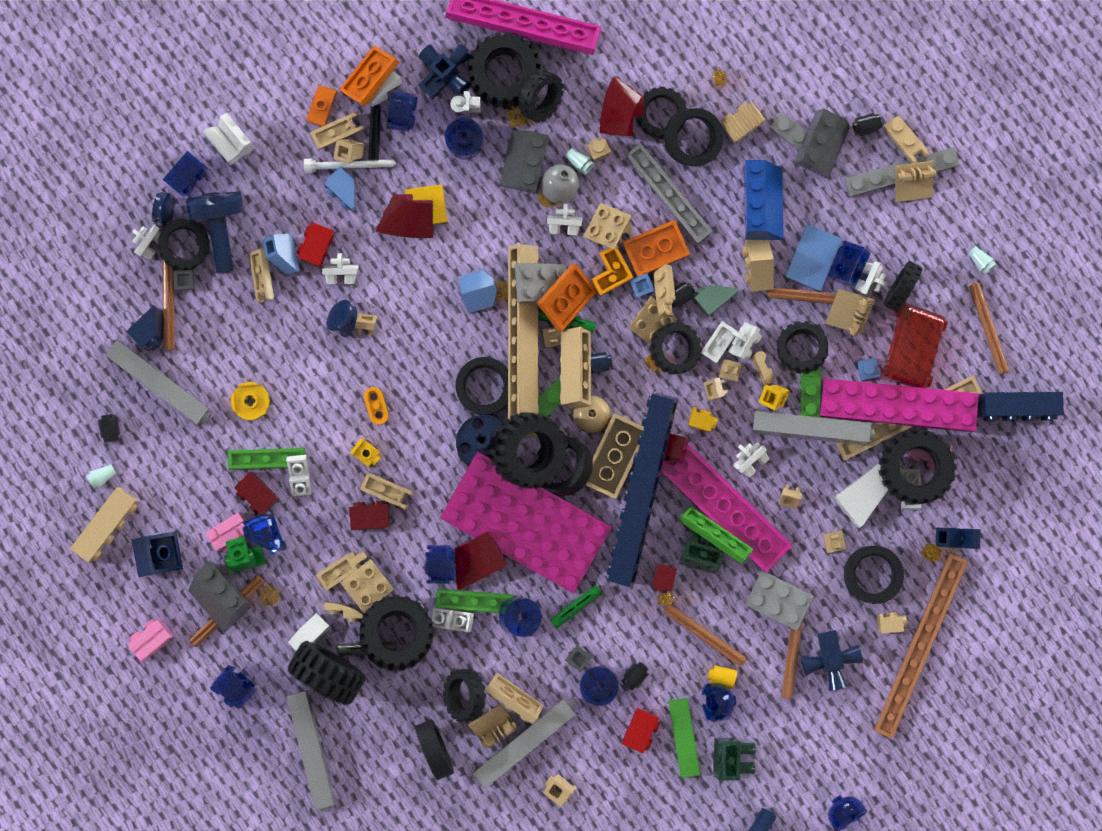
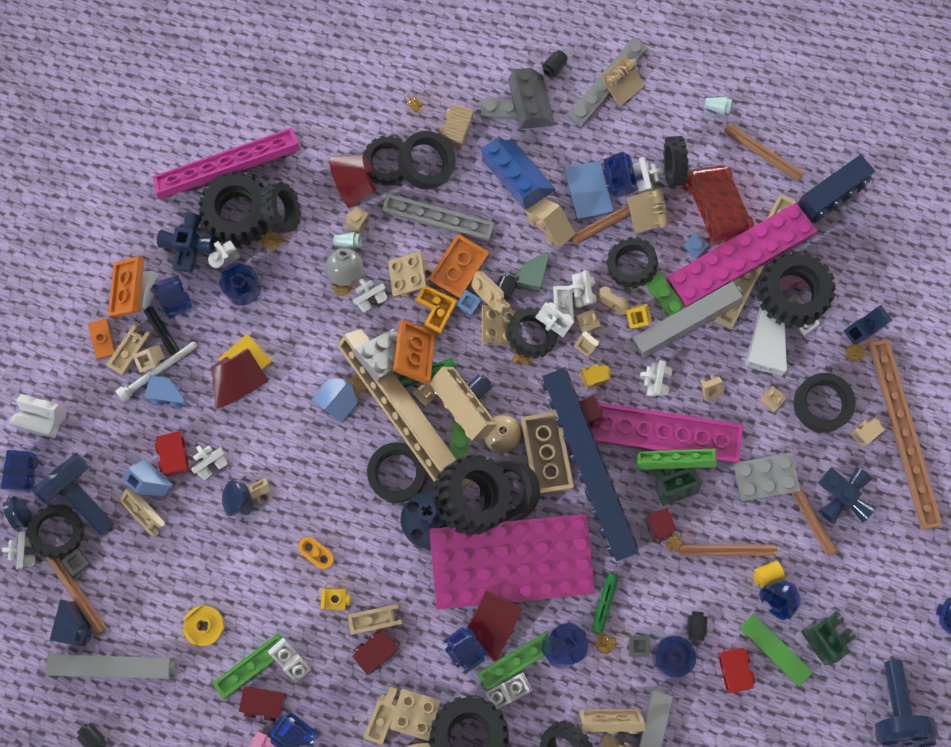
camera: 40 degrees left, 10 degrees down
(524, 161) = (302, 269): dark grey slope -> none
(553, 637) = (604, 643): none -> clear yellow plate
(700, 350) = (554, 319): none -> white hips
(905, 139) = (592, 55): tan hinge -> none

